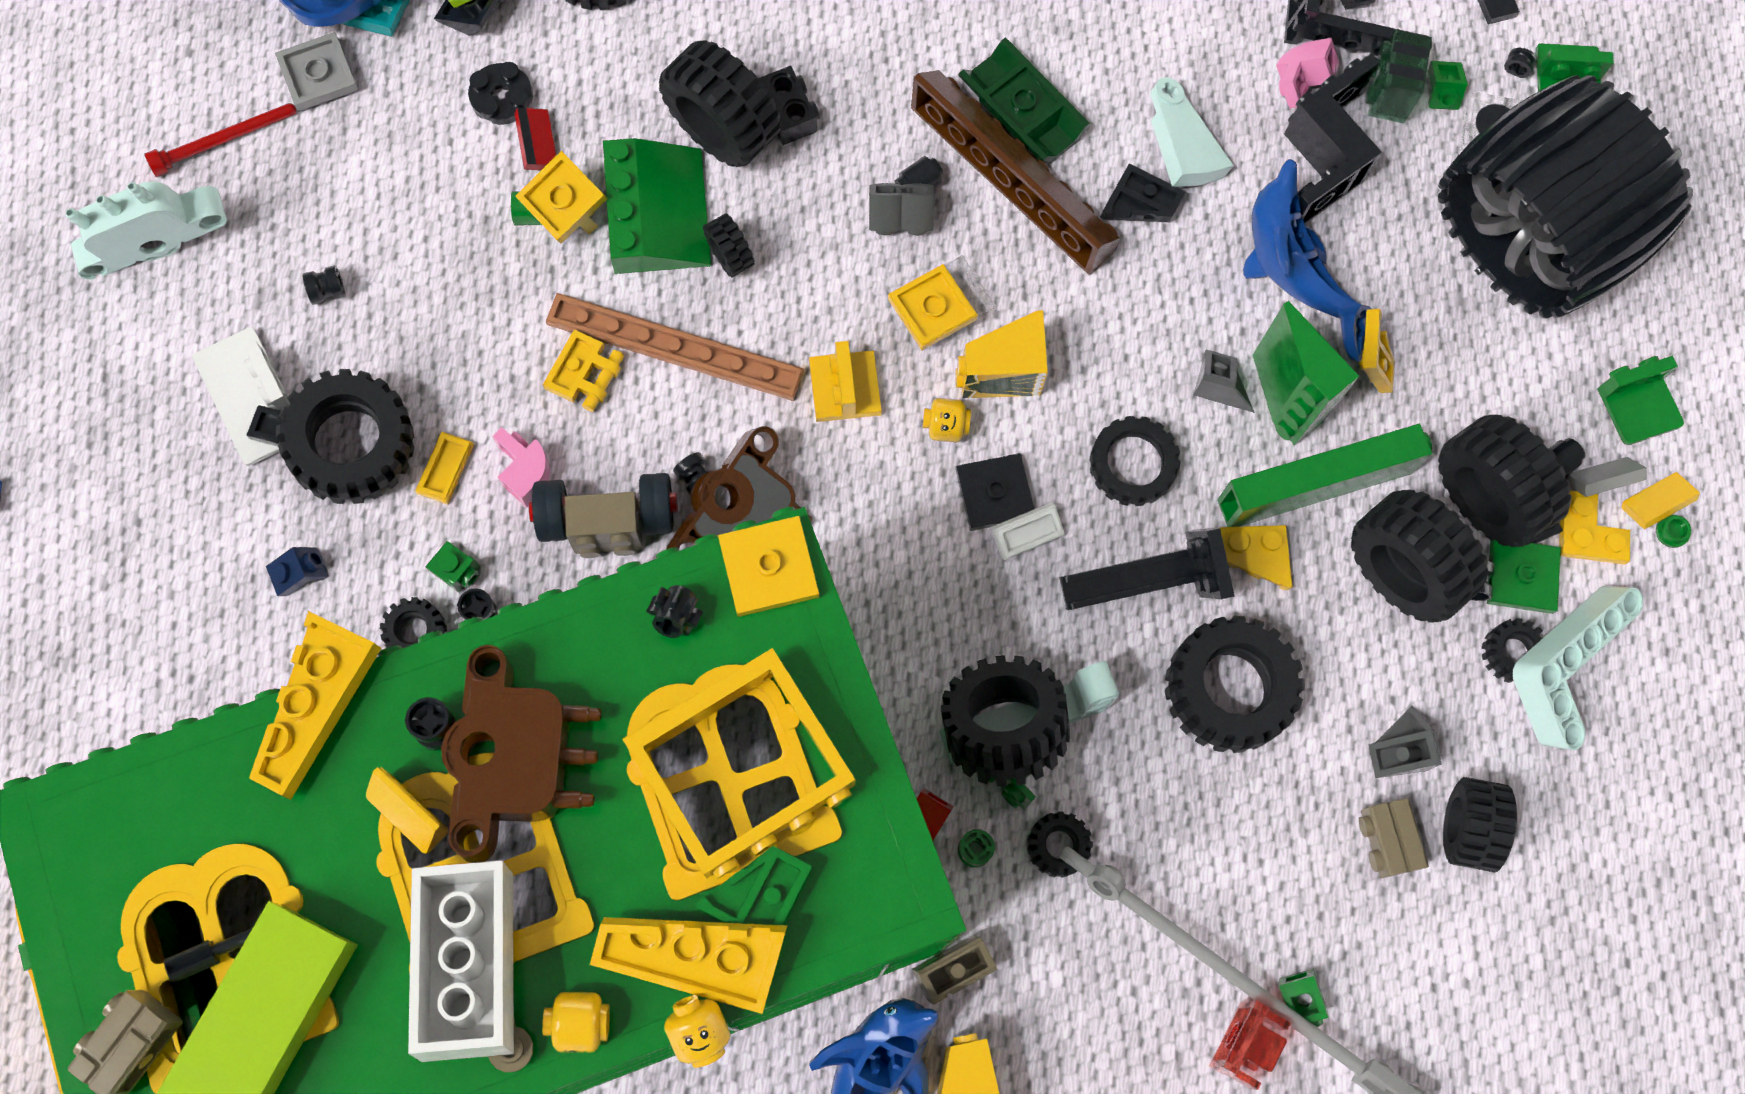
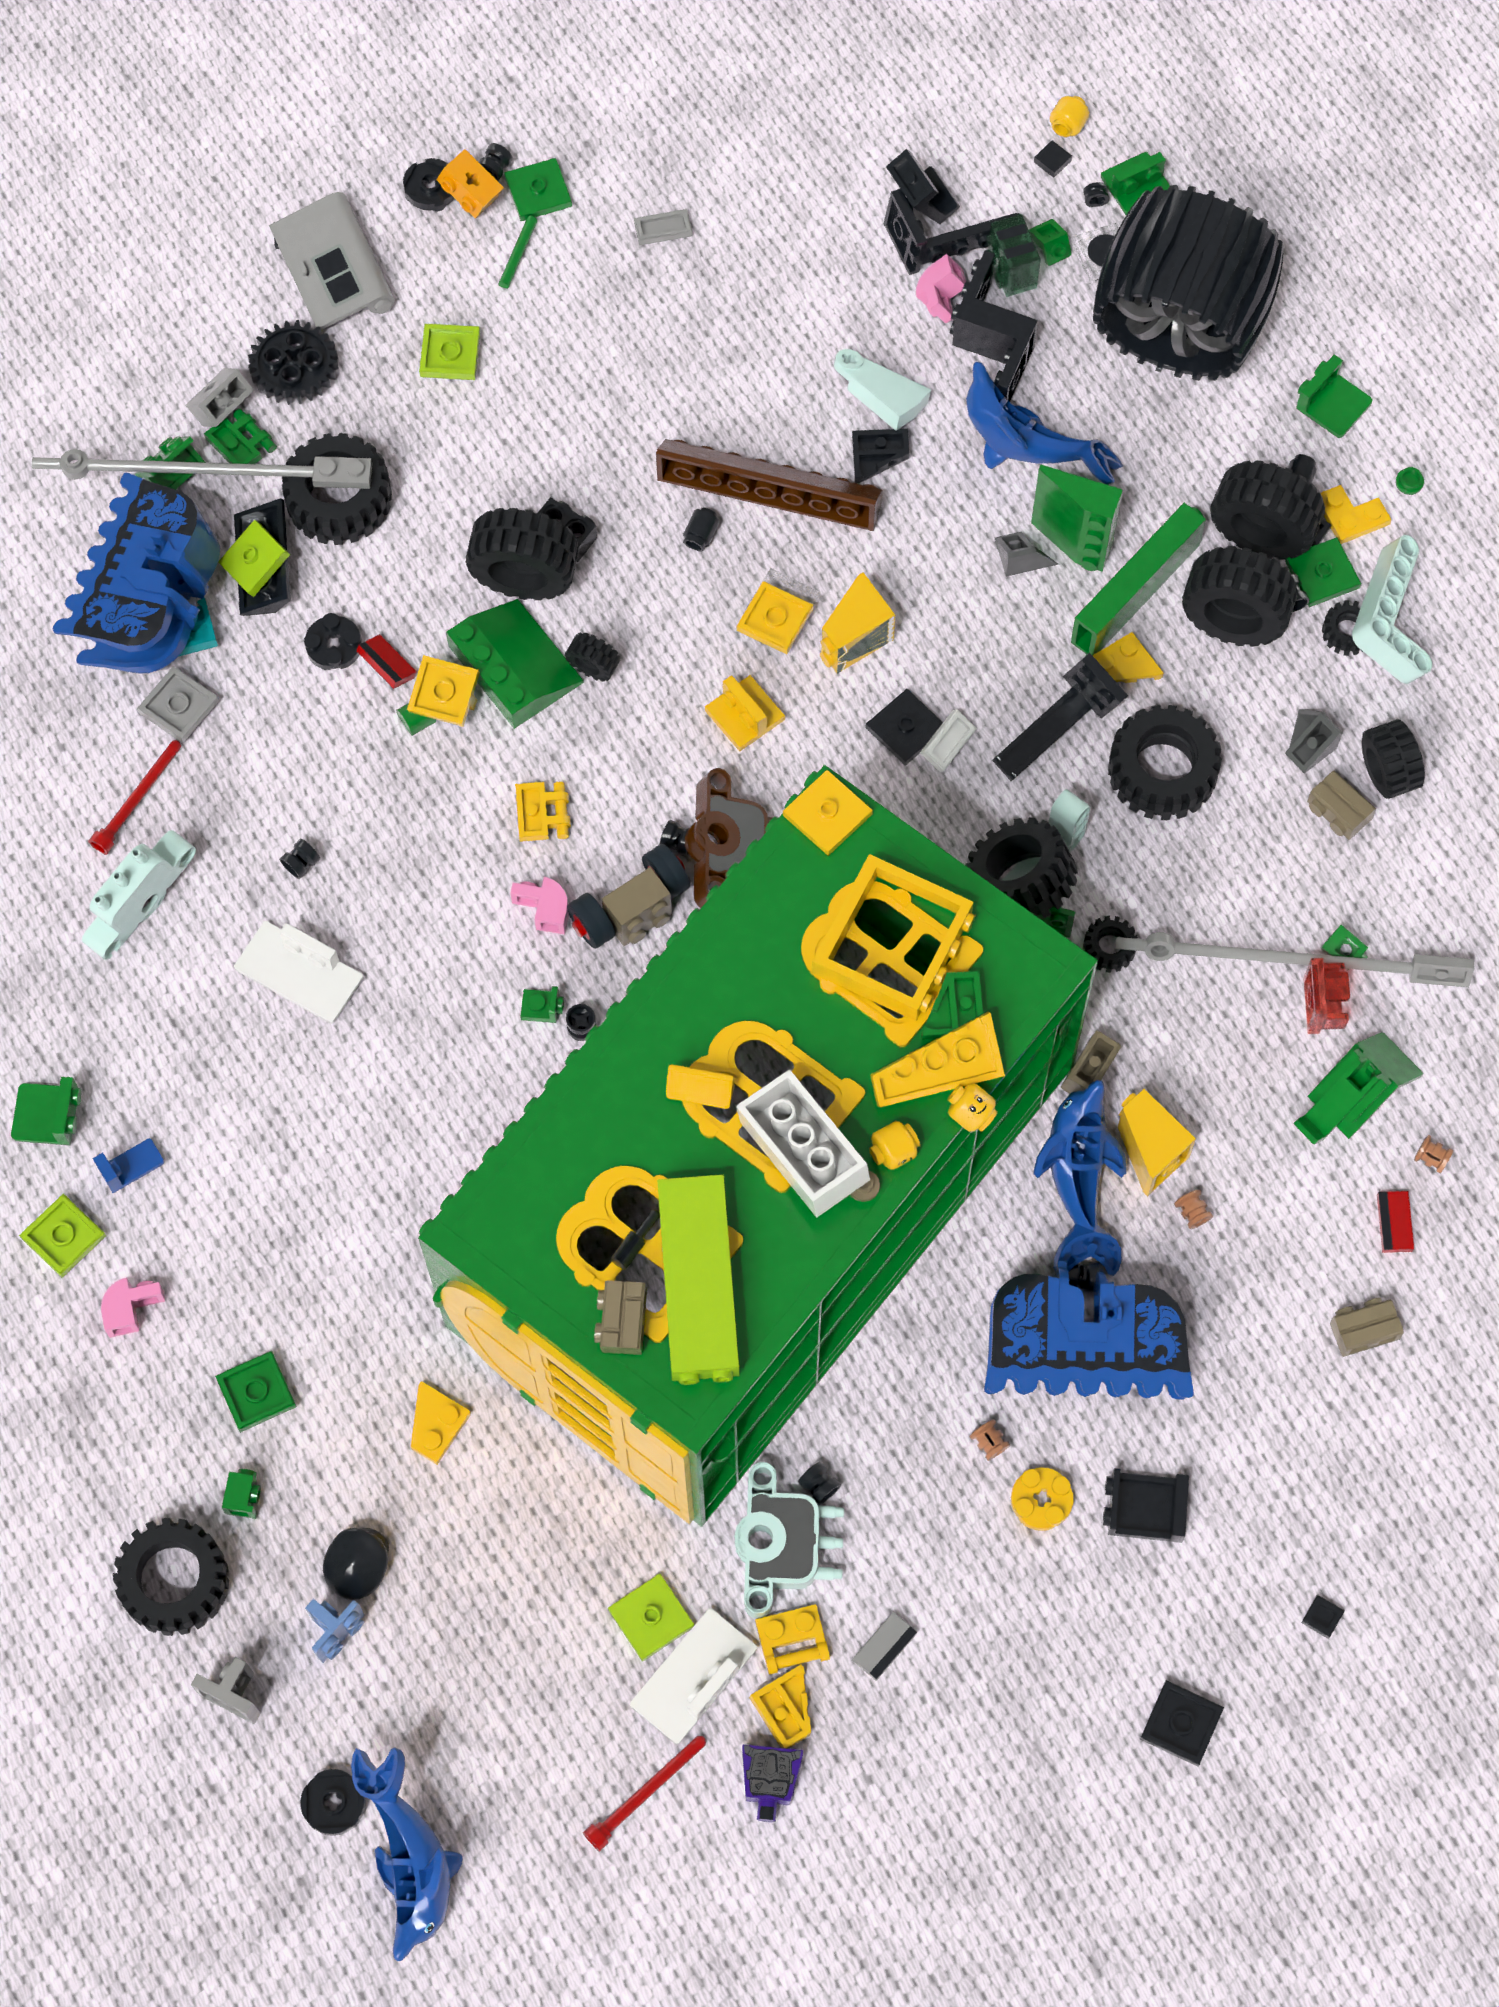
camera: 25 degrees left, 5 degrees down
(264, 425) = (332, 982): black tile -> none
(295, 569) = (424, 1073): dark blue bracket -> none
(318, 691) = (590, 1052): yellow wing -> none
(332, 396) = (408, 919): black tyre -> none
(405, 611) = (530, 1053): black tyre -> none
(424, 718) = (680, 1019): black wheel -> none
(444, 468) = (484, 940): yellow tile -> none
(529, 757) = (751, 1001): reddish brown piece -> none
(674, 611) = (788, 872): black gear -> none
(675, 347) = (598, 755): nougat tile -> none
(901, 208) = (703, 558): dark grey brick -> none
(947, 420) = (838, 694): yellow head -> none
(1026, 102) = (744, 427): dark green piece -> none
(1147, 431) = (994, 620): black tyre -> none
(1377, 356) = (1123, 471): yellow wing -> none
(1607, 476) = (1339, 468): light grey tile -> none
(1660, 500) = (1387, 464): yellow tile -> none

